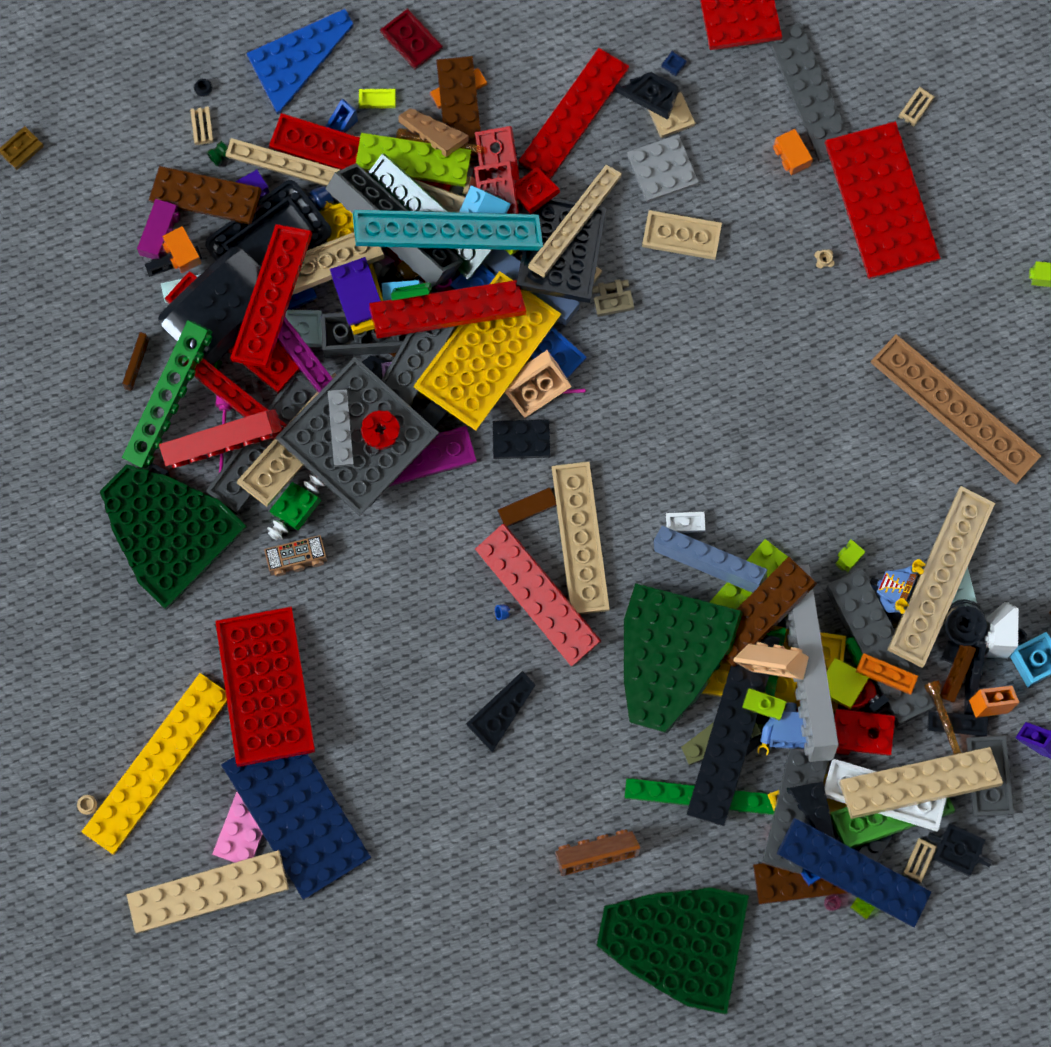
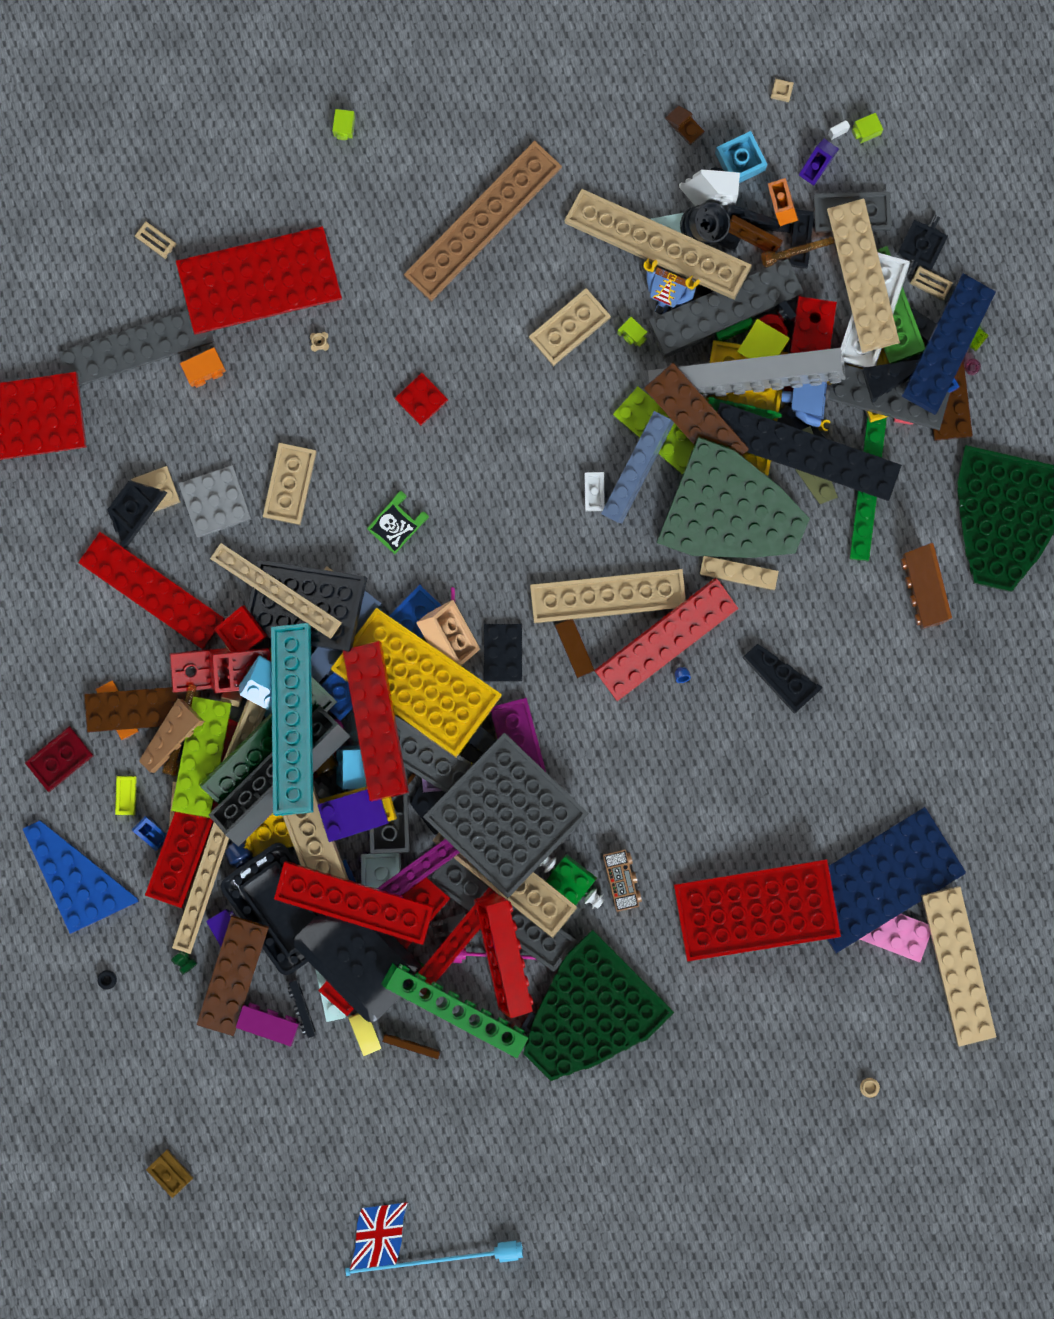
camera: 85 degrees left, 10 degrees up
(146, 318) = (364, 1034): none -> light yellow slope
(156, 764) = (829, 1019): yellow plate -> none
(181, 249) = (296, 998): orange brick -> none
(200, 111) = (134, 983): tan tile -> none
(340, 428) = (499, 831): light grey plate -> none
(390, 434) = (512, 796): red plate -> none
(411, 291) = (356, 757): green tile -> none
(607, 667) = (739, 573): none -> tan plate
(615, 302) = (360, 553): dark tan plate -> none
(644, 334) = (395, 526): none -> flag
(674, 63) = (98, 485): dark blue tile -> none
(764, 704) = (787, 420): lime plate -> none
(771, 355) = (421, 399): none -> red plate
(773, 660) = (750, 407): light nougat slope -> none
(852, 495) = (569, 327): none -> tan plate
(887, 673) = (757, 301): orange tile -> none

